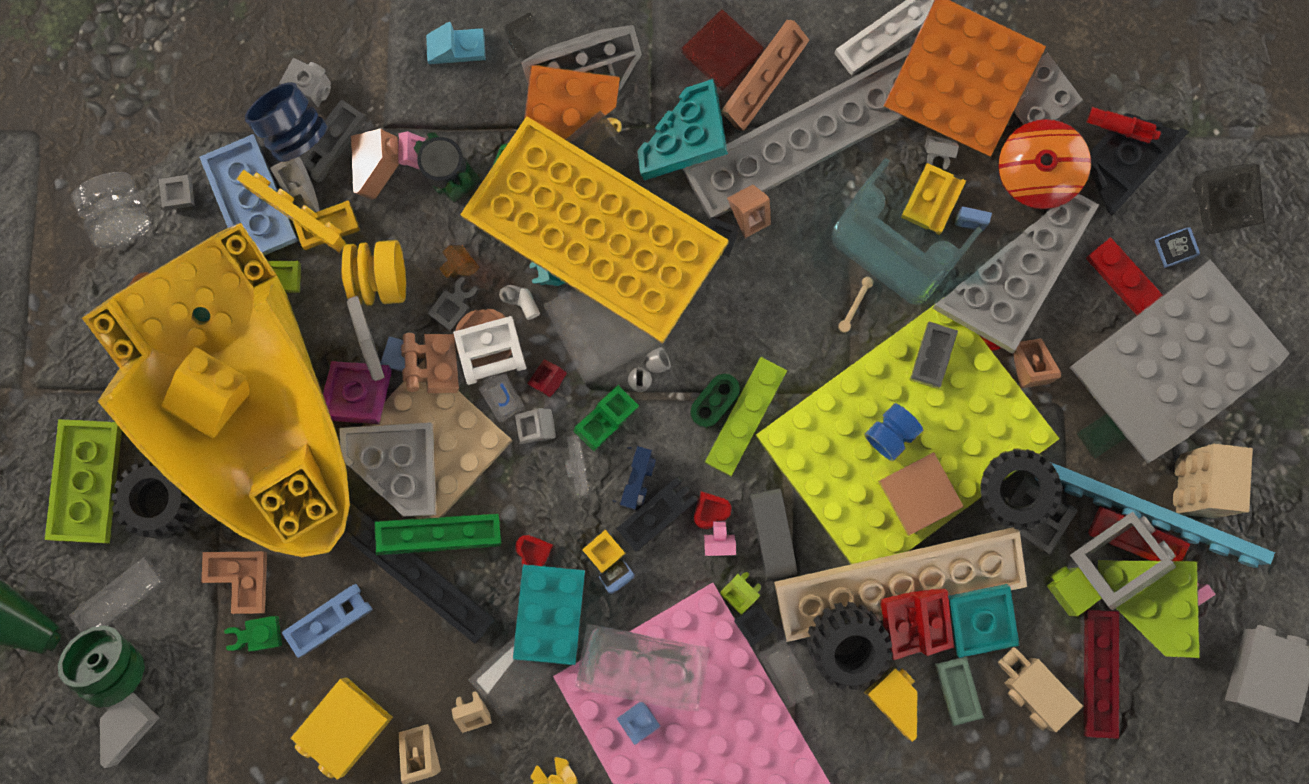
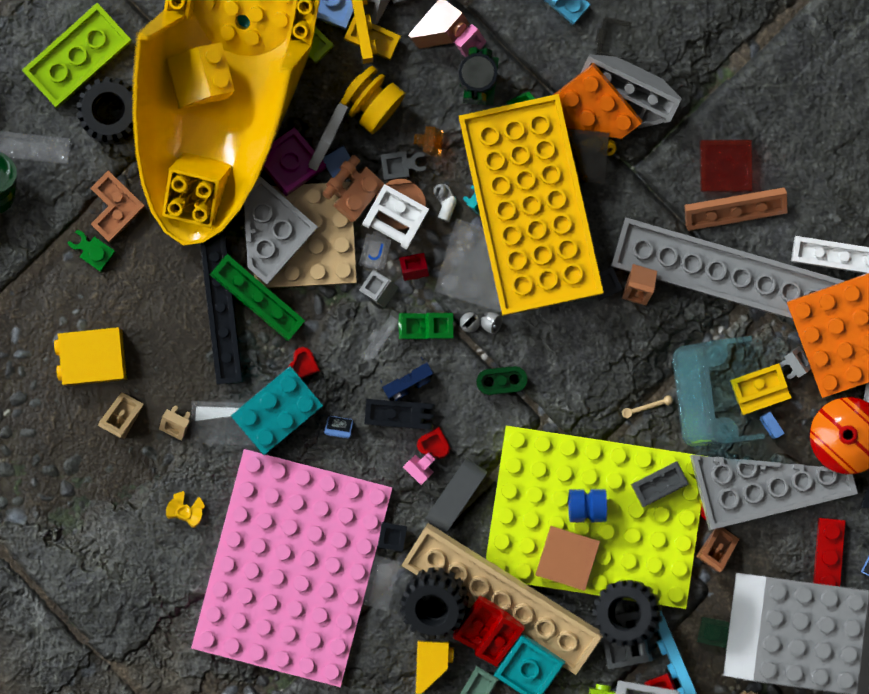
camera: 35 degrees right, 5 degrees up
(326, 621) = (141, 284): medium blue plate -> none
(603, 551) = (345, 405): yellow plate -> none
(638, 722) = (268, 524): medium blue tile -> none
(642, 668) = (301, 495): clear windscreen -> none
(686, 134) = (649, 198): teal plate -> none
(740, 593) = (402, 509): lime tile -> none
(745, 416) = (511, 408): lime plate -> none

